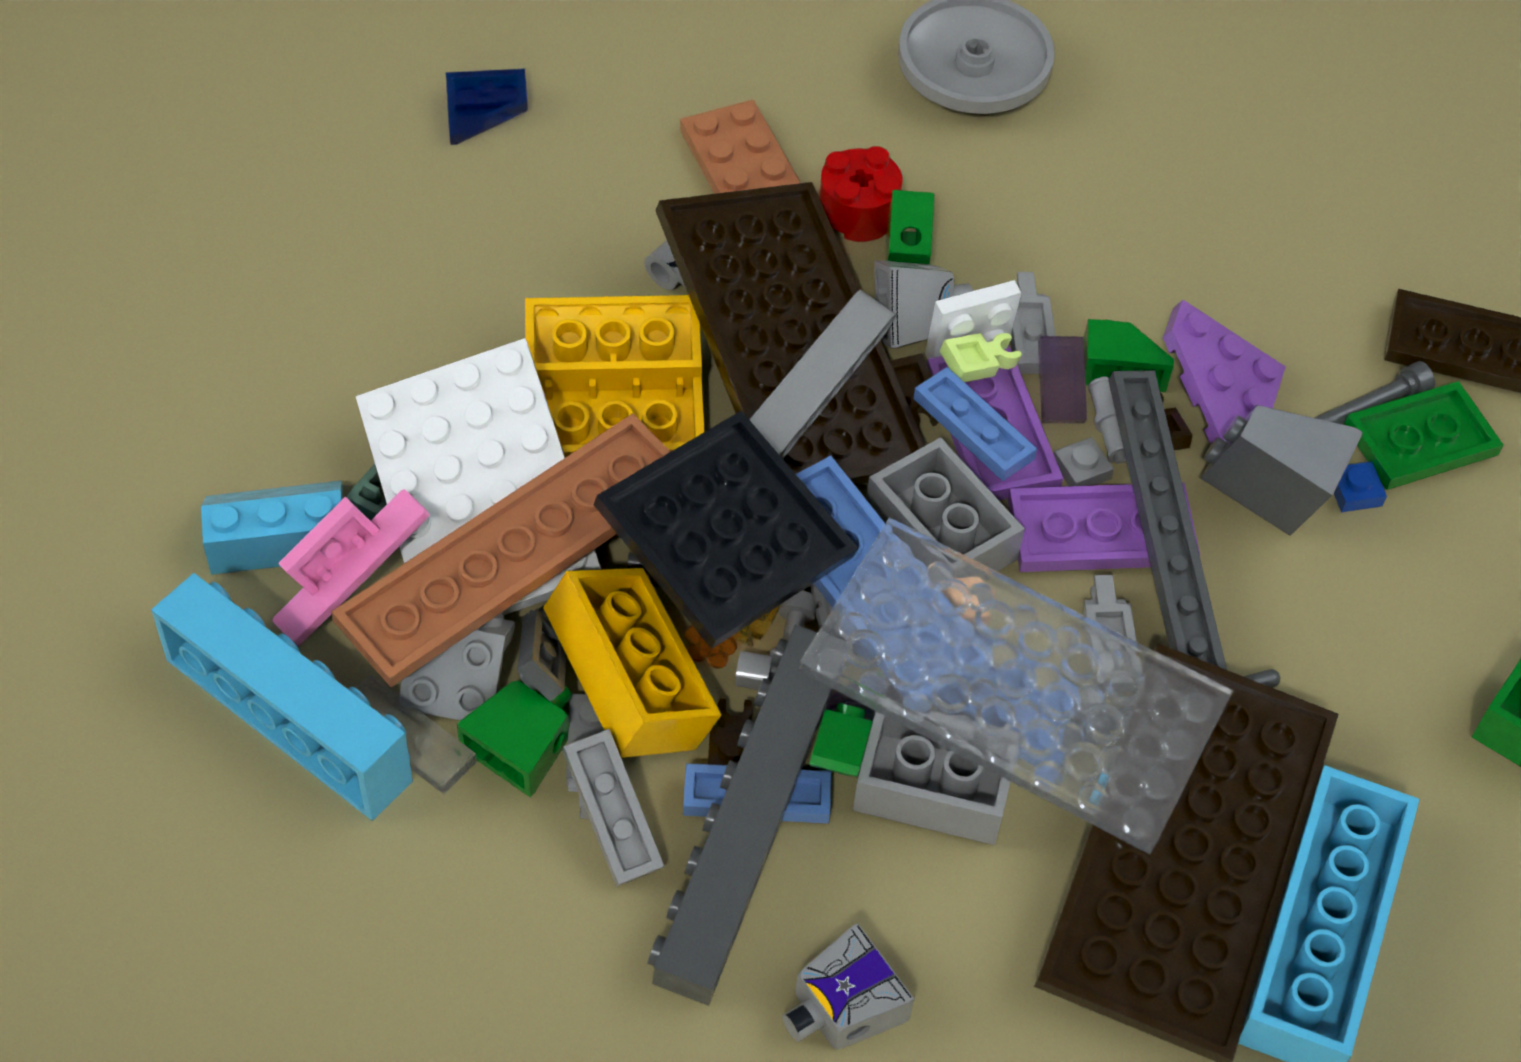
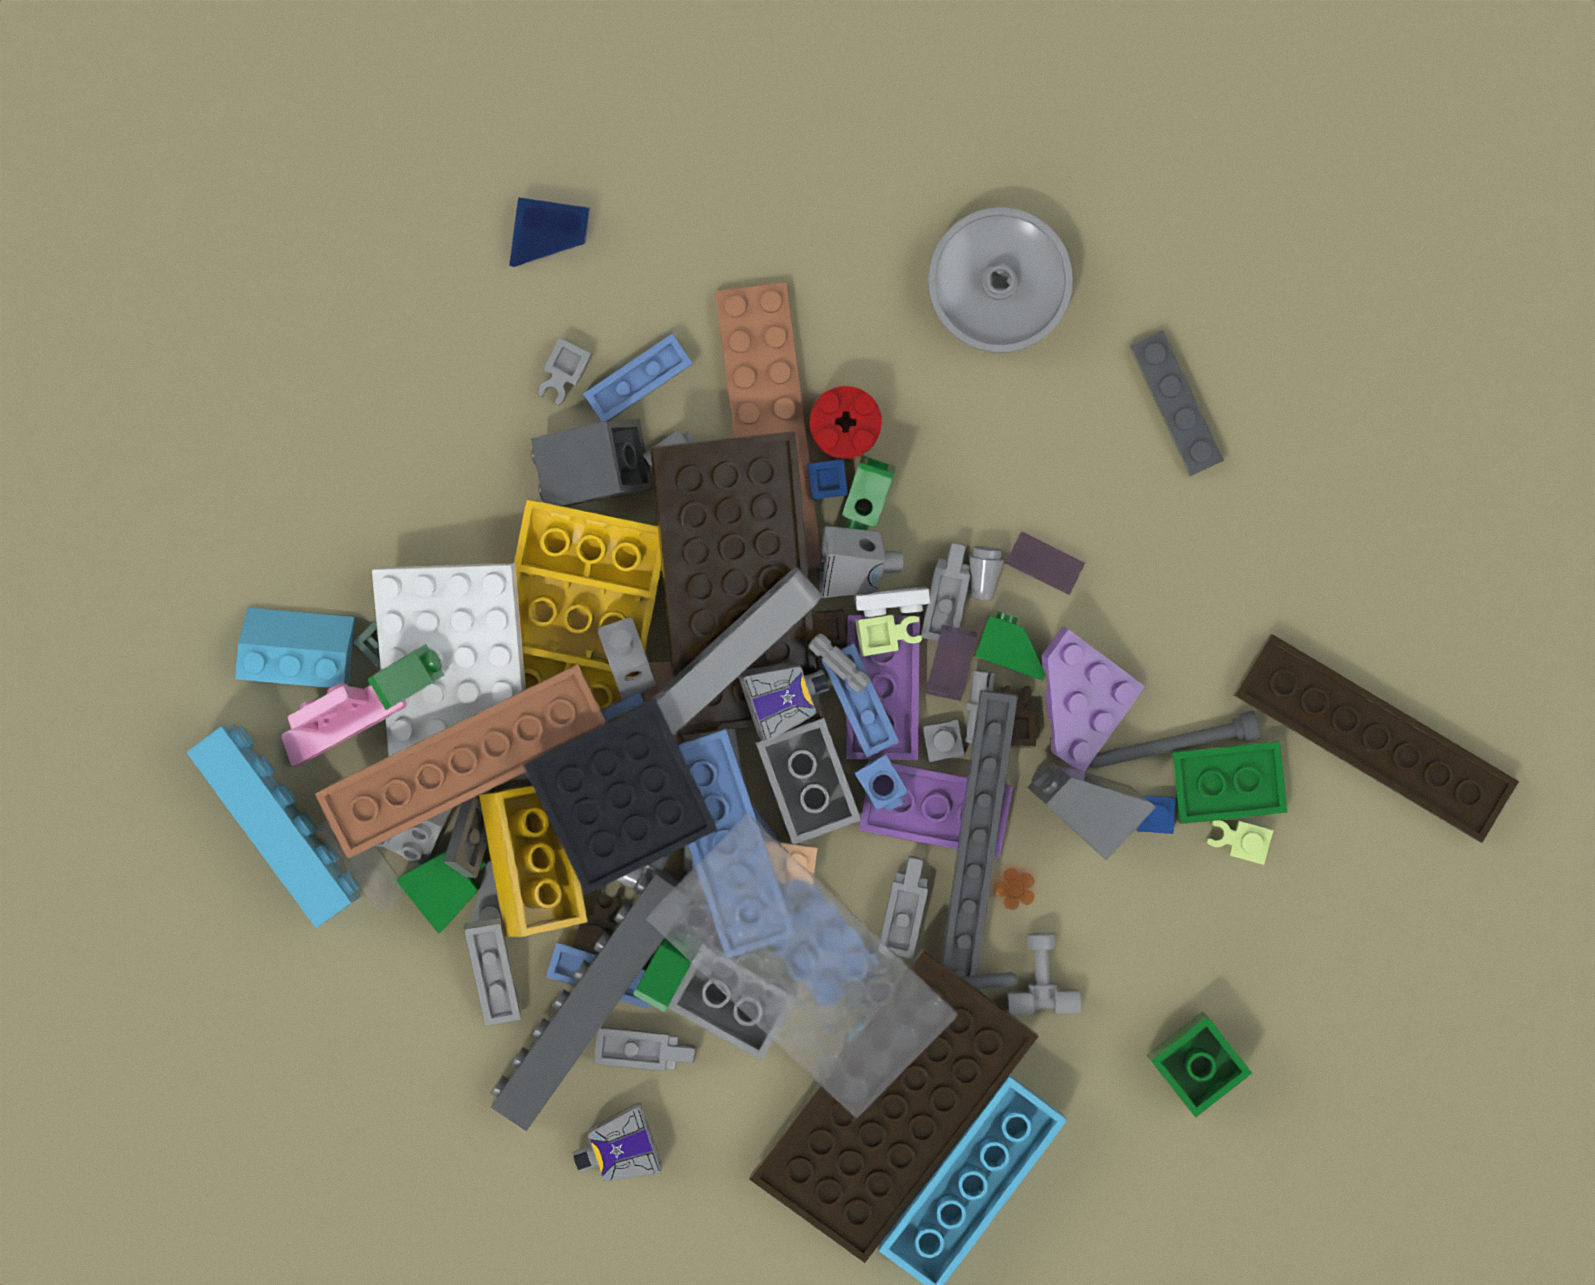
camera: 20 degrees right, 35 degrees up
(425, 469) = (406, 676): none -> green slope
(533, 207) = (566, 365): none -> light grey plate
(584, 261) = (591, 463): none -> dark grey slope
(618, 203) = (638, 378): none -> medium blue plate
(682, 399) = (625, 656): none -> light grey torso
(835, 868) = (640, 1049): none -> light grey hinge
(860, 248) = (827, 479): none -> blue plate
(878, 426) = (780, 696): none -> torso
(938, 379) = (839, 663): none -> light grey axle
(1025, 481) = (877, 767): none -> medium blue brick
(1065, 295) = (985, 571): none -> light grey cone
(1124, 284) = (1045, 563): none -> clear purple tile
(1199, 131) = (1176, 403): none -> dark grey plate
(1231, 595) = (1015, 889): none -> clear orange plant
(1338, 695) = (1042, 993): none -> light grey bar
(1469, 490) = (1245, 842): none -> yellowish green plate

